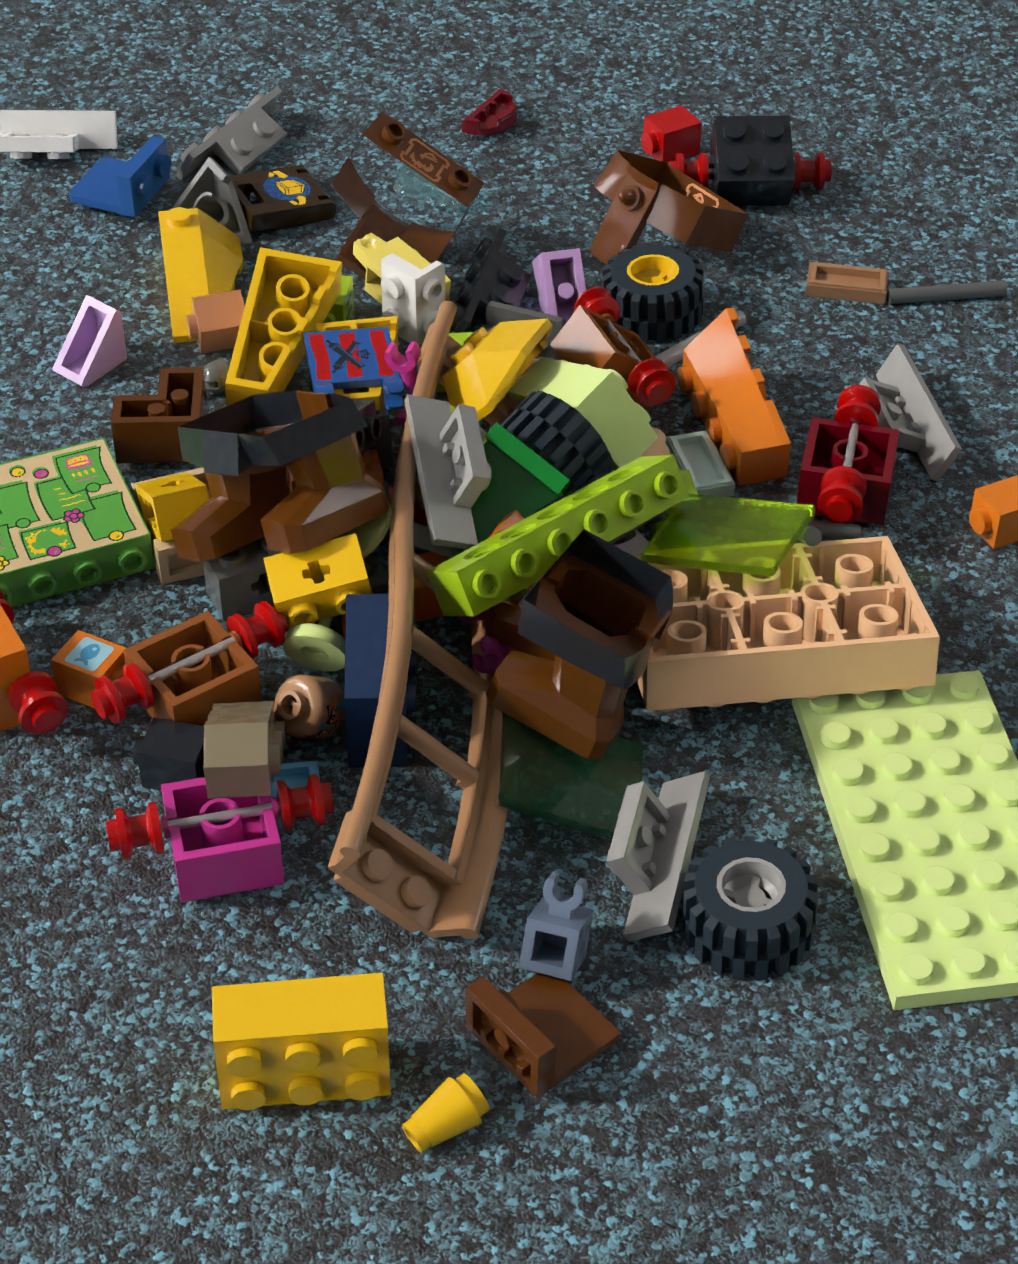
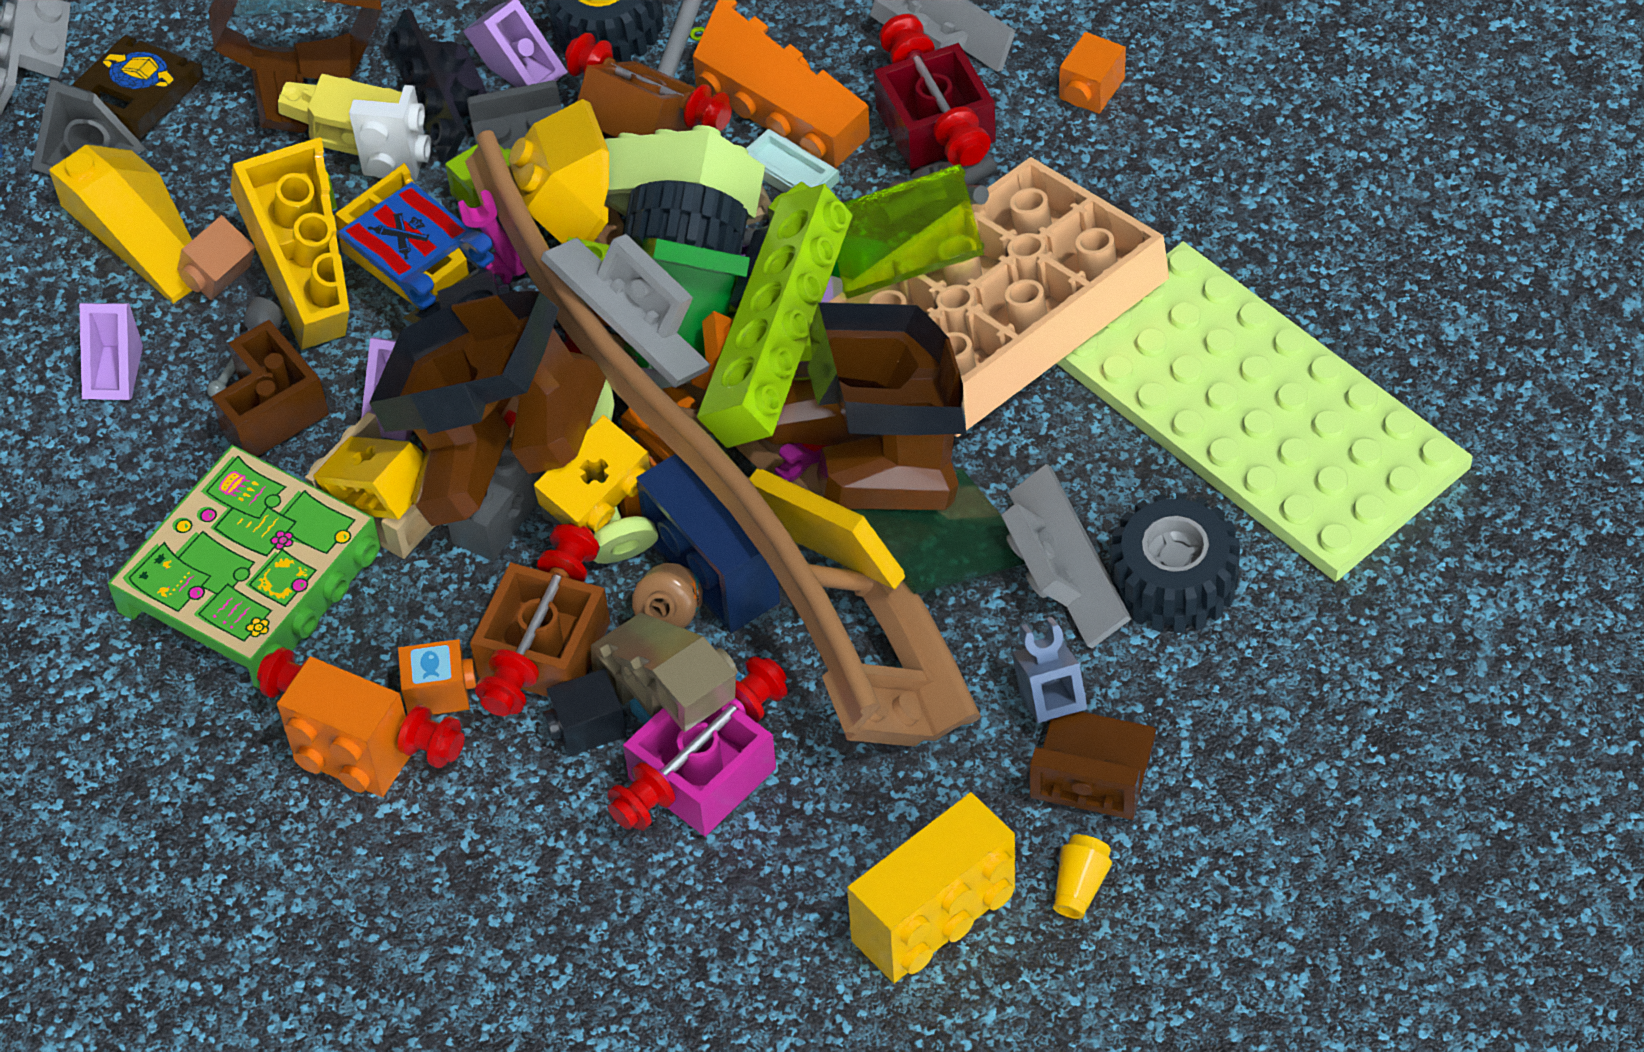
camera: 30 degrees left, 10 degrees up
(459, 709) = (828, 528): none -> yellow tile

